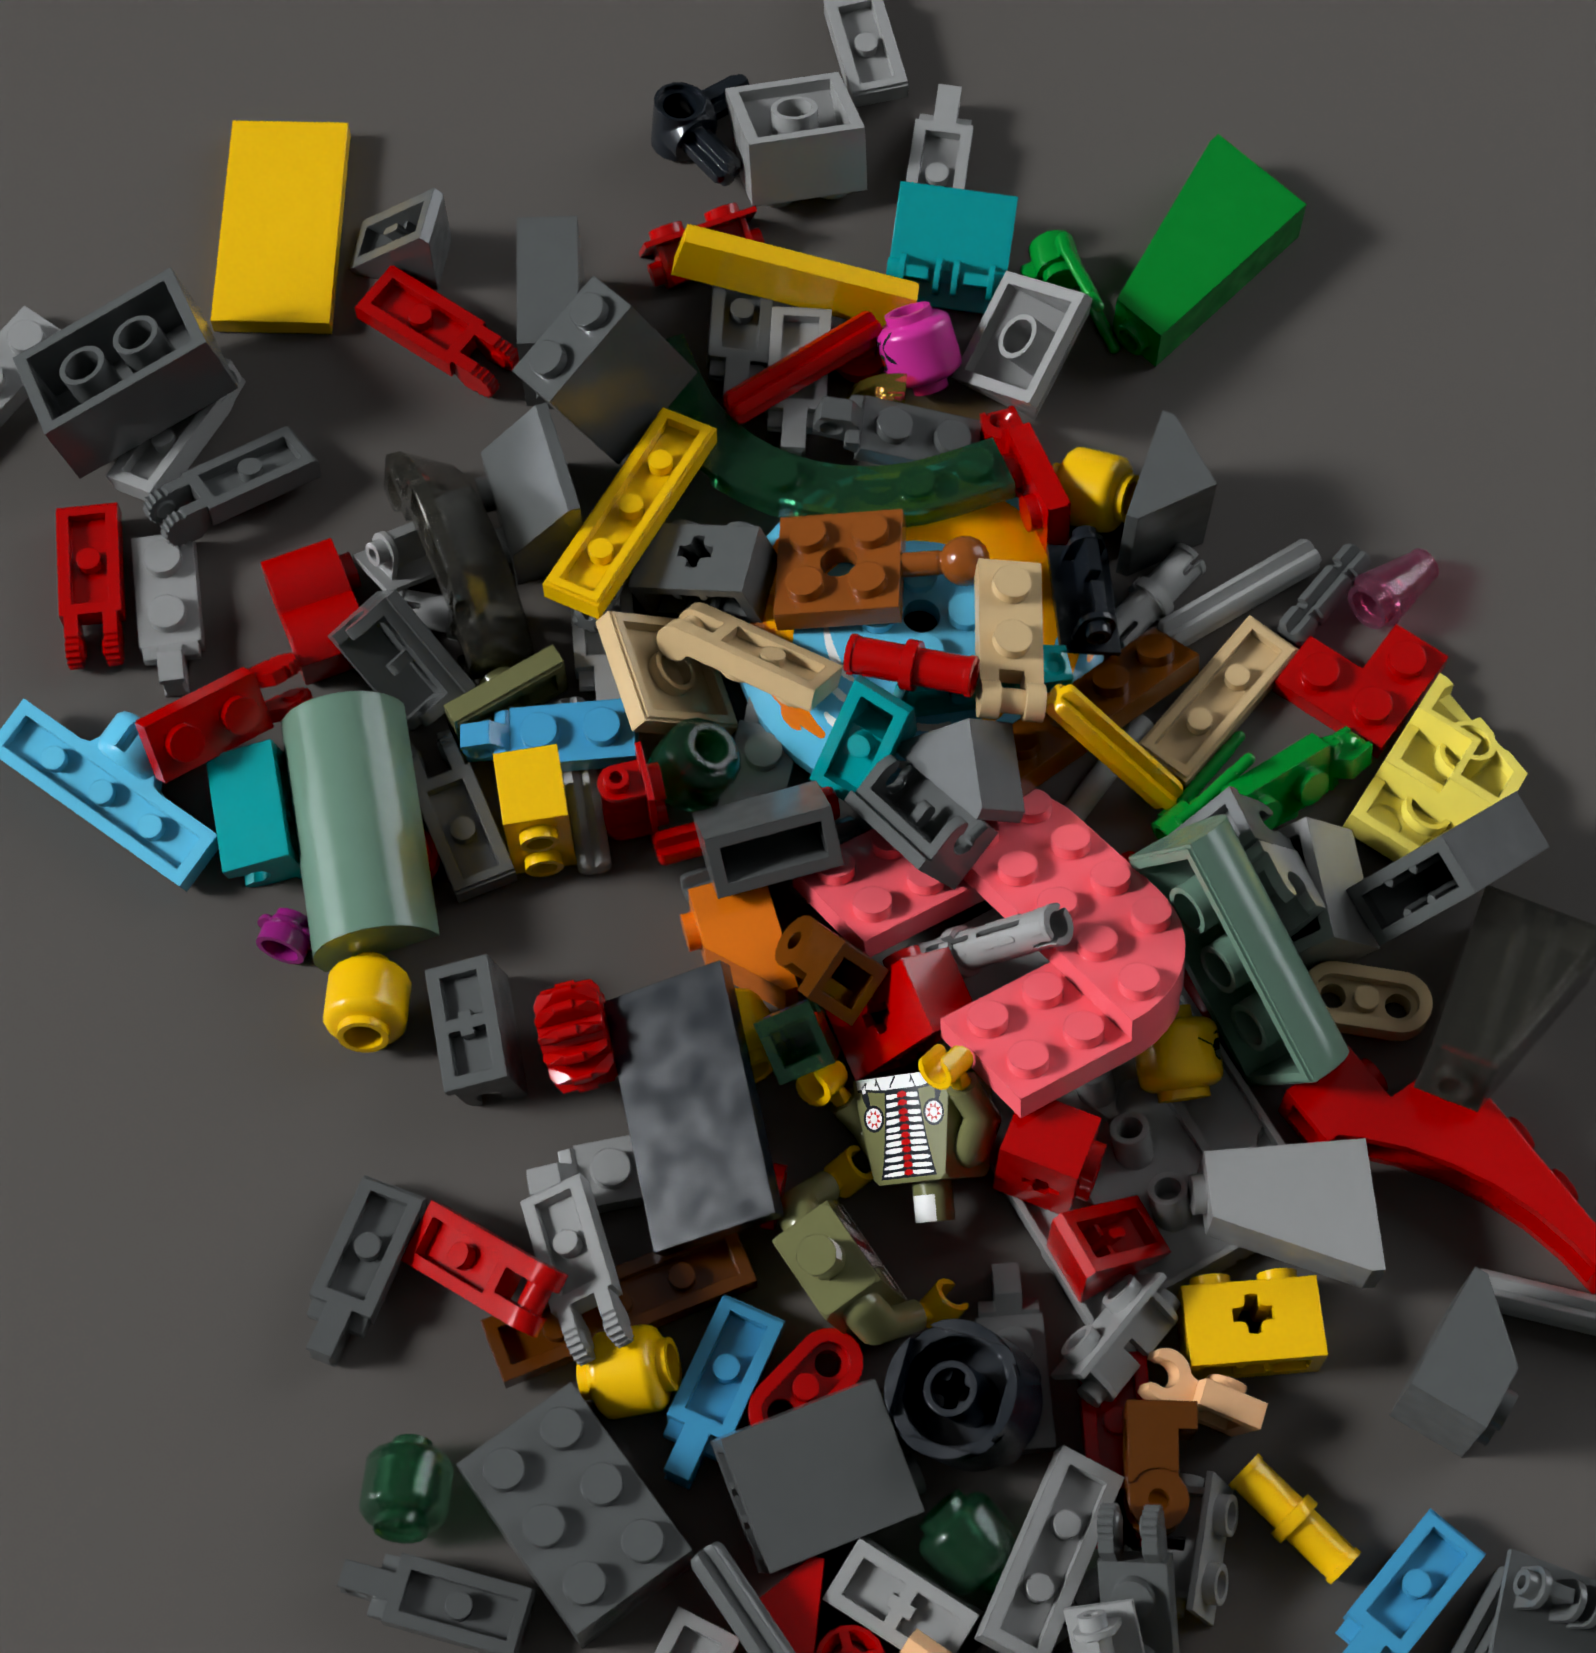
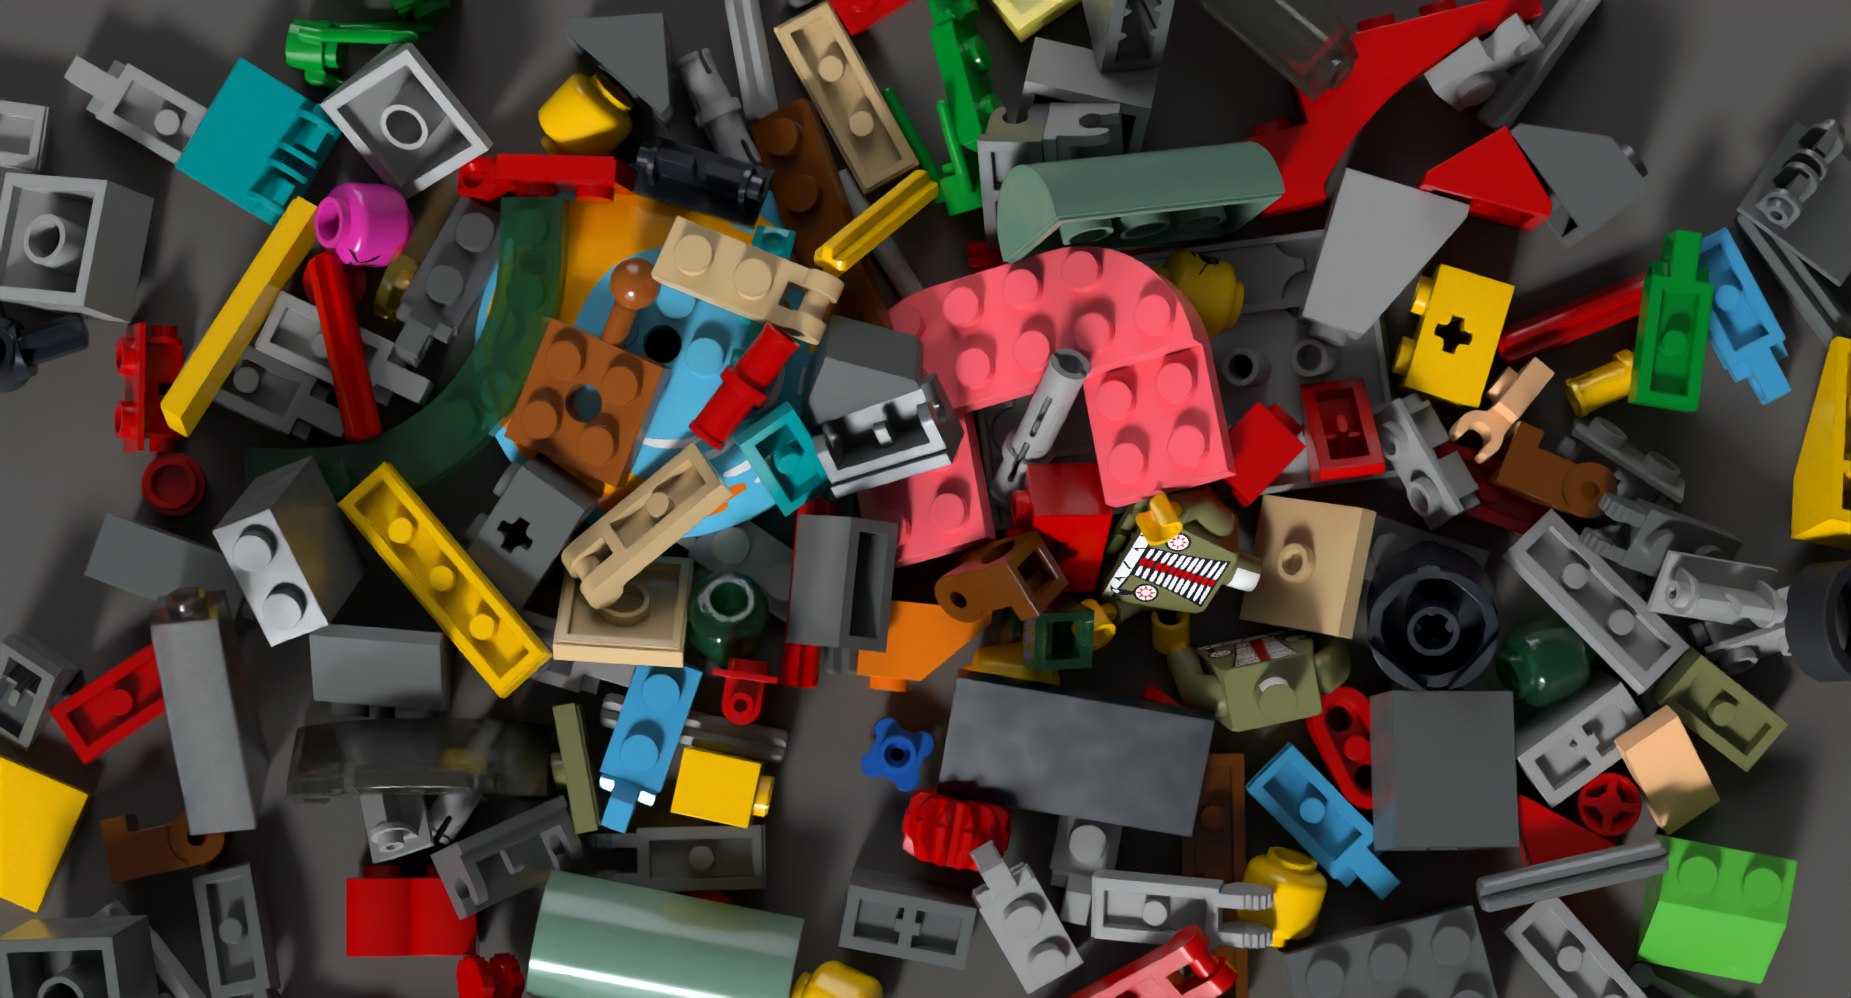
camera: 70 degrees left, 20 degrees up
(296, 383) = (157, 849): none -> reddish brown leg
(437, 355) = (210, 711): none -> clear smoke slope
(513, 1126) = (1022, 920): none -> light grey hinge
(614, 954) = (879, 760): none -> blue plate
(633, 286) = (174, 484): none -> red plate
(965, 1266) = (1310, 565): none -> tan plate
(1333, 1453) = (1571, 320): none -> red axle
(1357, 1527) = (1672, 327): none -> green hinge
(1364, 996) = (1195, 99): tan plate -> none
(1418, 1281) = (1494, 183): none -> red slope
(1523, 1245) = (1479, 67): none -> light grey plate

